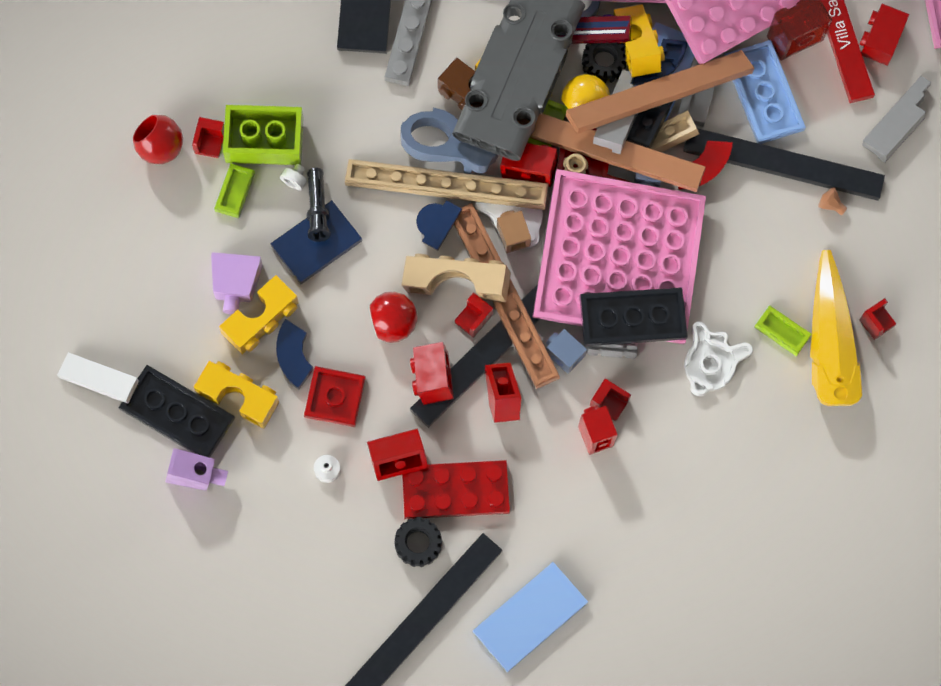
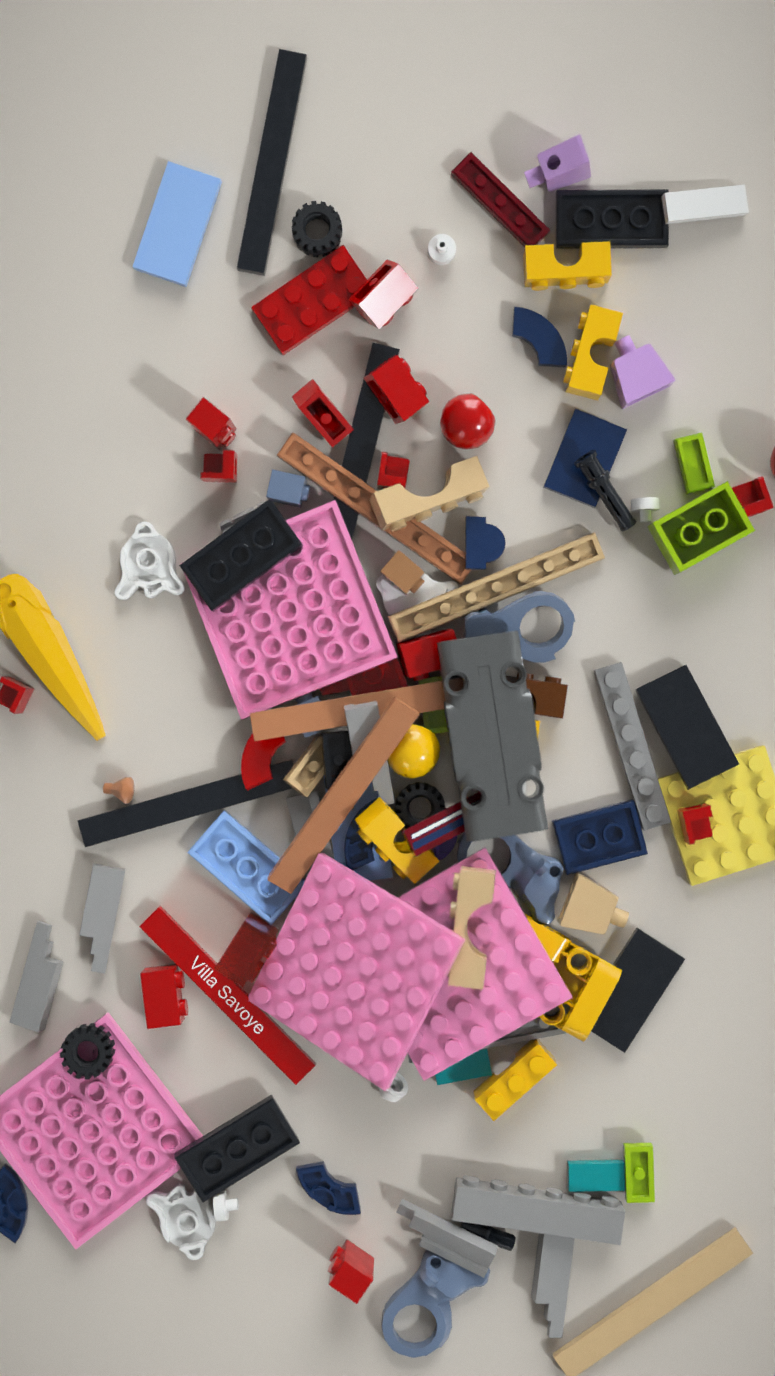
camera: 150 degrees right, 15 degrees up
(256, 479) = (500, 201): none -> dark red tile
(334, 396) = (476, 321): red tile -> none
(575, 159) = (386, 682): tan plate -> none
(782, 330) = (98, 633): lime tile -> none

